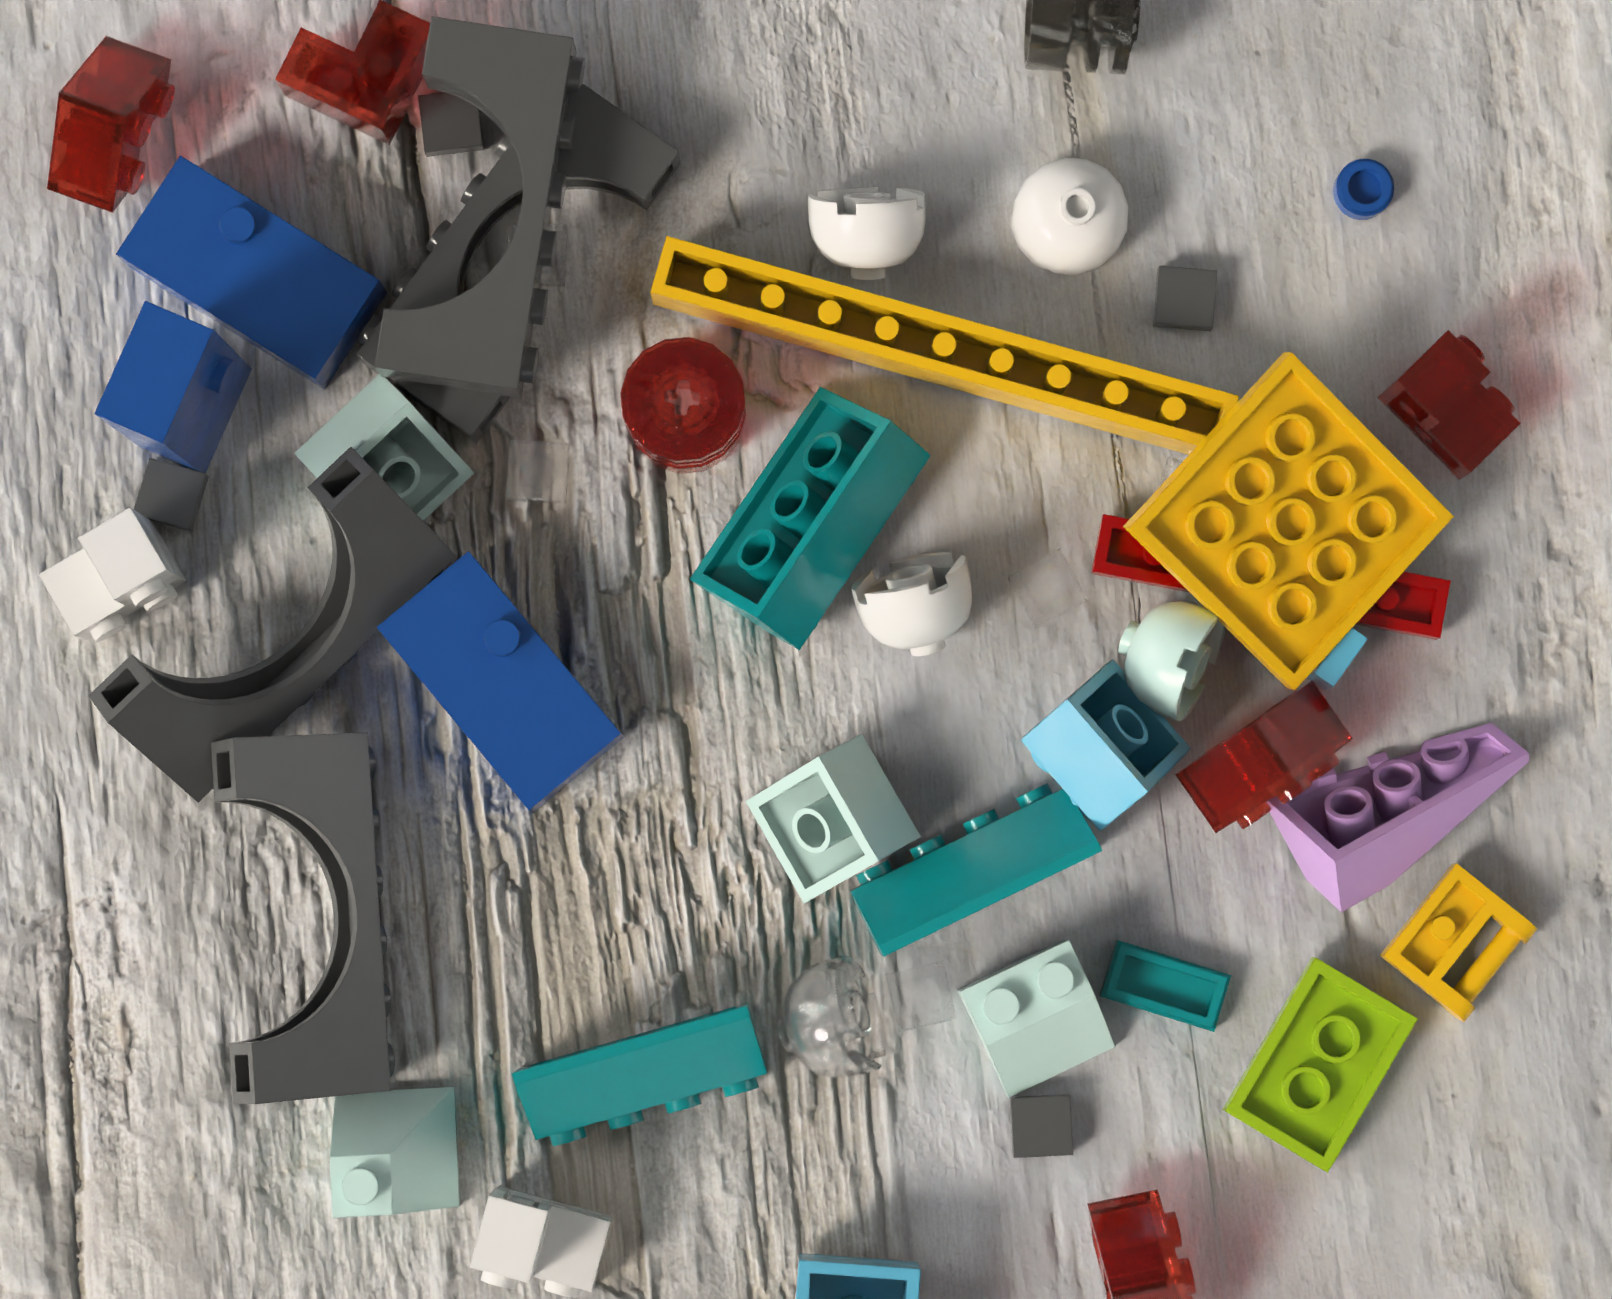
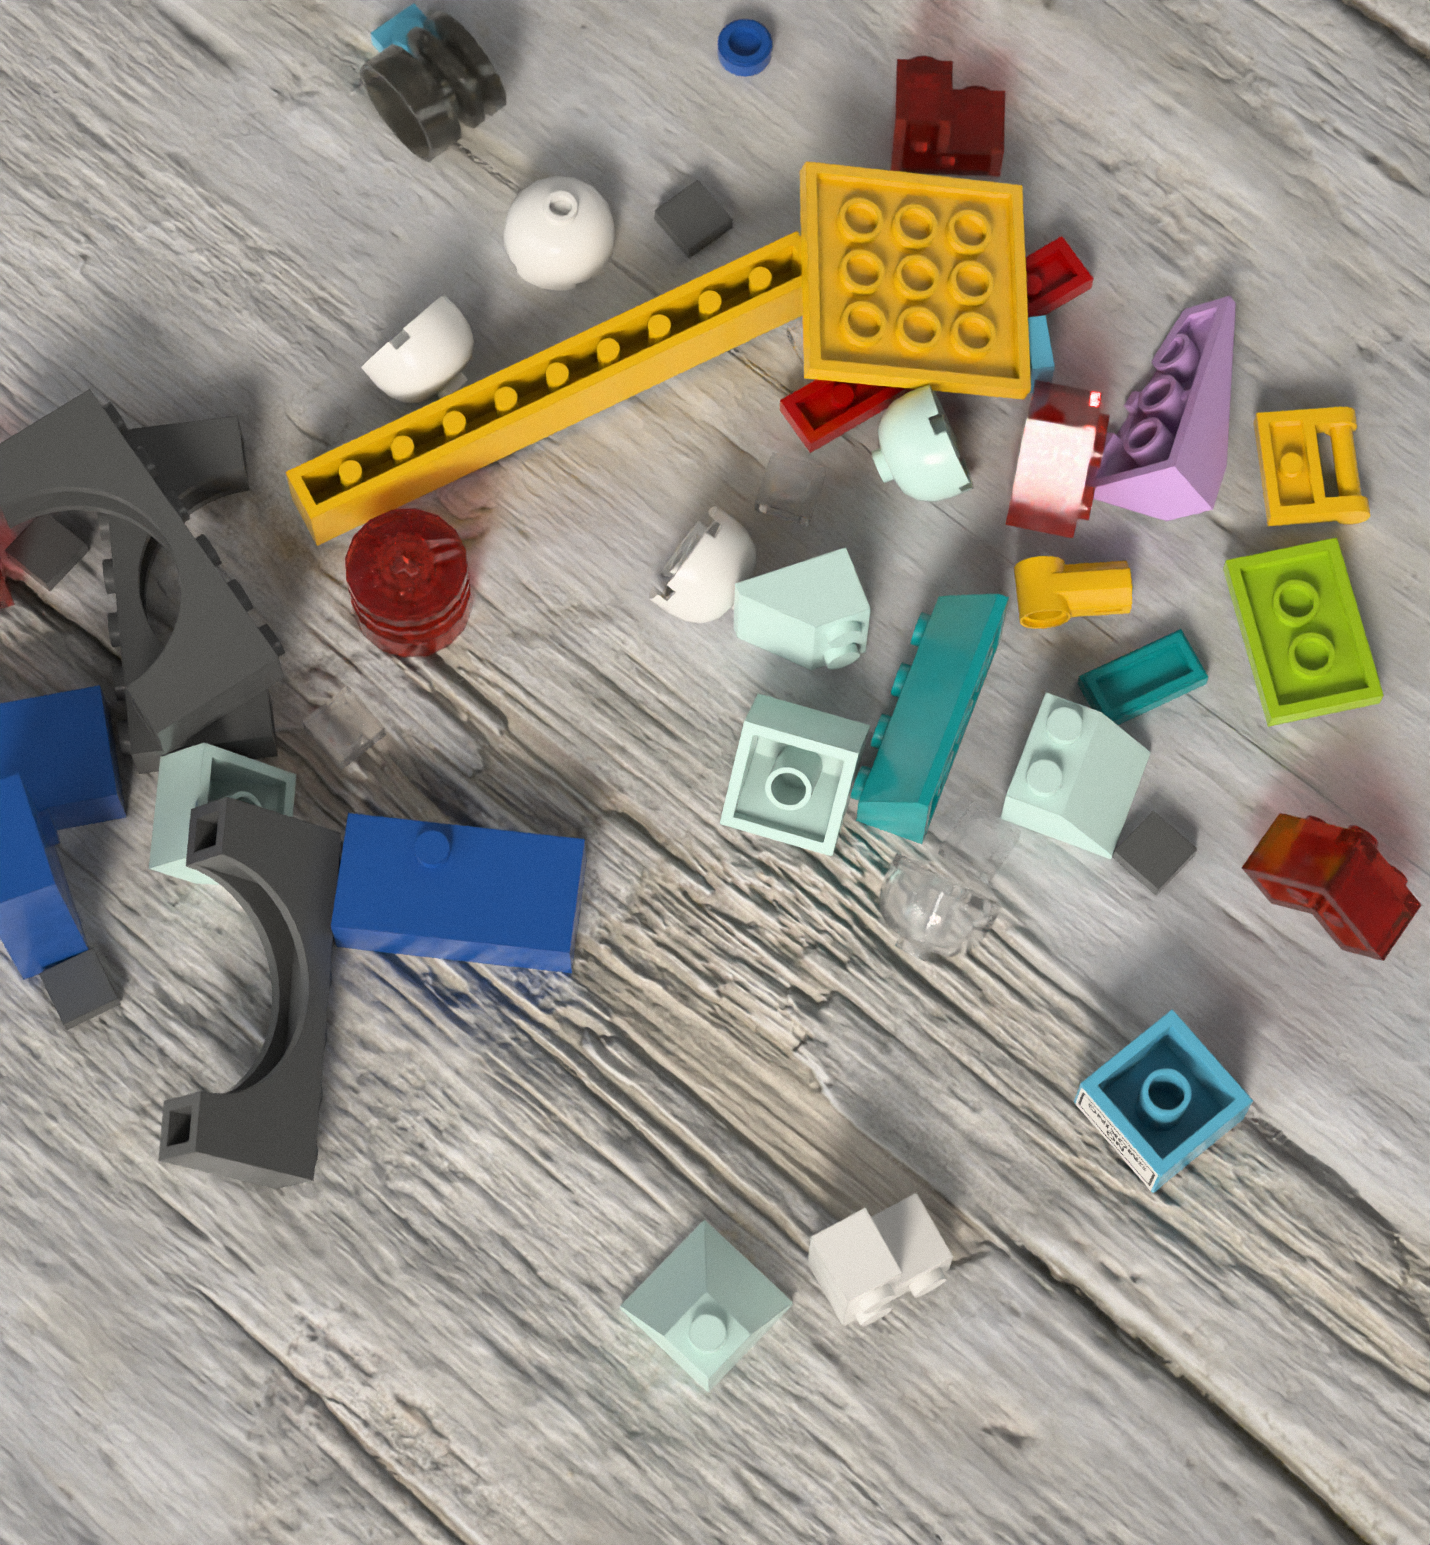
camera: 40 degrees left, 15 degrees down
(113, 575) = (96, 1063): white brick -> none
(340, 1033) = (405, 1089): dark grey arch -> none
(641, 1072) = (833, 1067): teal slope -> none
(811, 516) = (574, 584): teal slope -> none
(956, 710) = (806, 612): none -> light aqua slope
(1105, 746) = (938, 542): medium azure brick -> none
(1165, 860) = (1056, 591): none -> yellow piece

